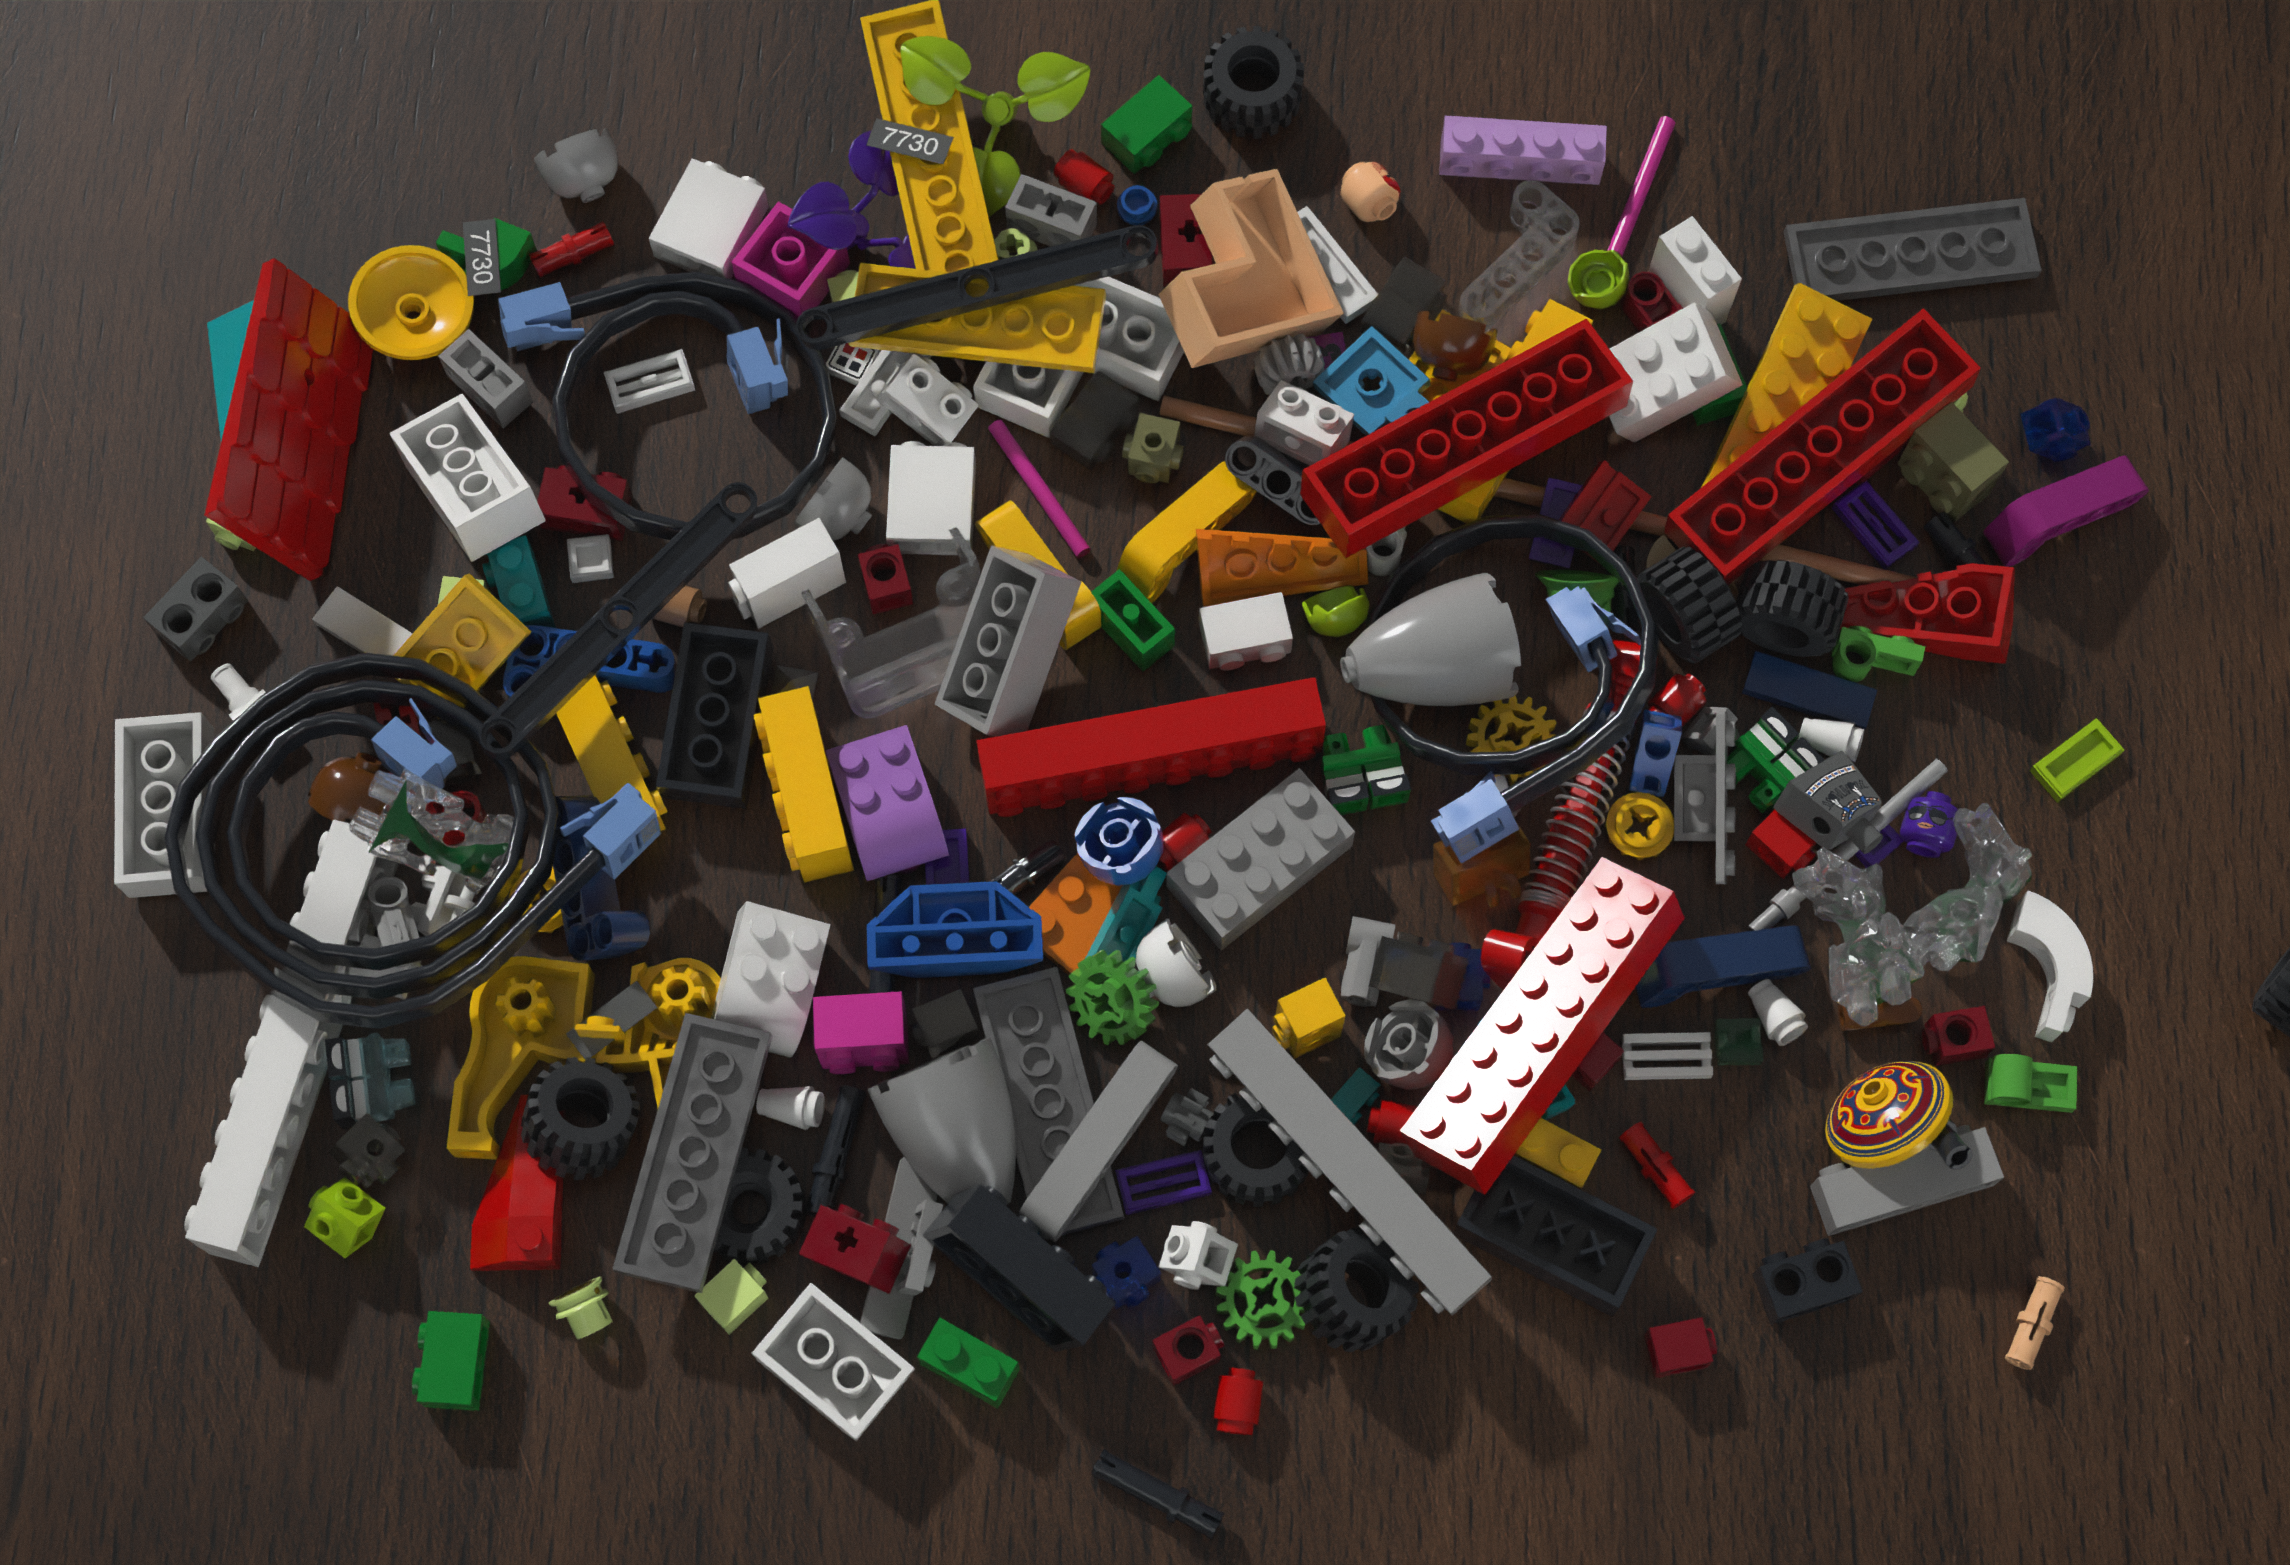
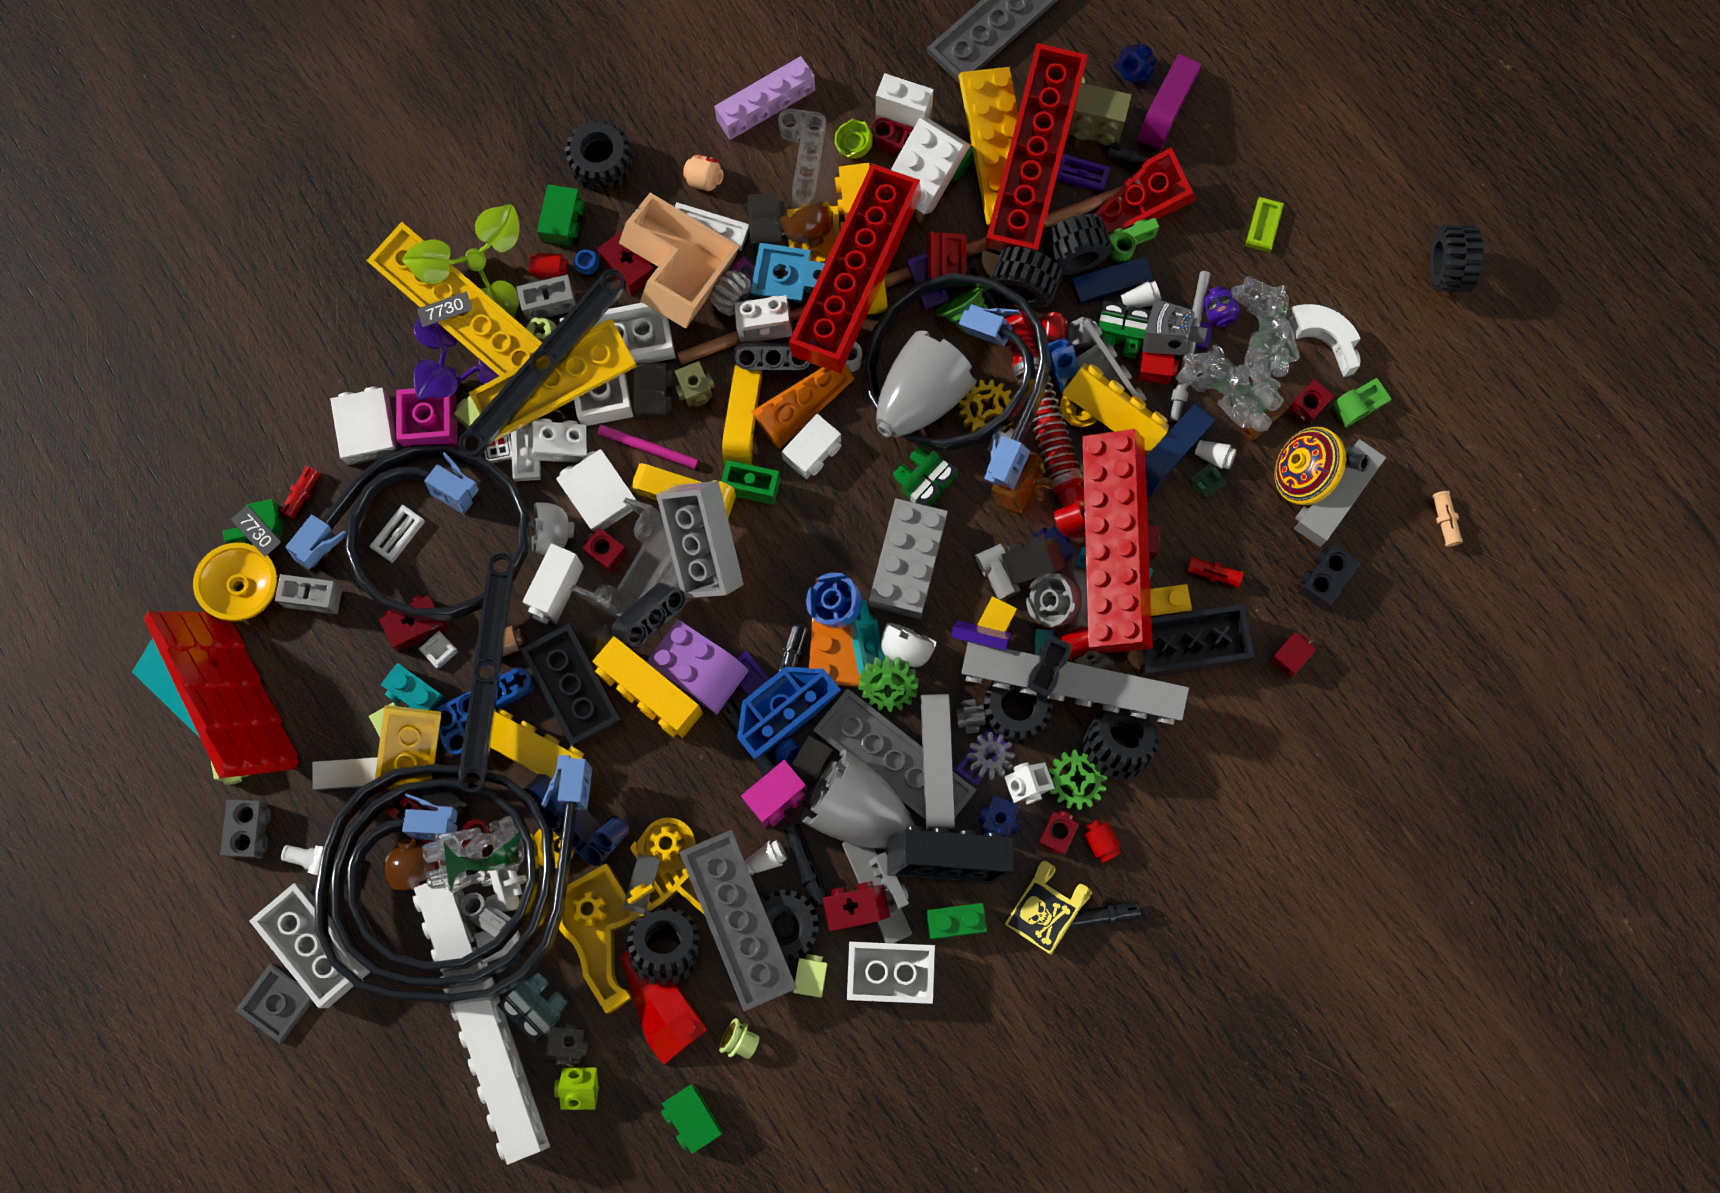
camera: 35 degrees left, 5 degrees up
(71, 846) = (275, 1003): none -> dark grey tile
(467, 477) = (342, 654): white brick -> none
(580, 165) = (271, 444): light grey cylinder -> none
(771, 974) = (705, 799): white brick -> none
(858, 683) = (648, 614): none -> black beam
(919, 990) = (787, 751): none -> blue plate
(1093, 1438) = (1045, 913): none -> flag
(1152, 747) = (811, 541): red brick -> none
(1181, 839) = (863, 576): red brick -> none
(1187, 1177) = (989, 765): none -> clear gear
(1270, 1015) = (981, 635): none -> dark purple tile
(1332, 1105) = (1051, 659): none -> black brick
(1337, 611) = (850, 403): lime hair -> none
(1642, 185) = (837, 76): dark pink bar -> none
(1667, 1039) = (1195, 500): white tile -> none
(1679, 851) = (1113, 406): none -> yellow brick

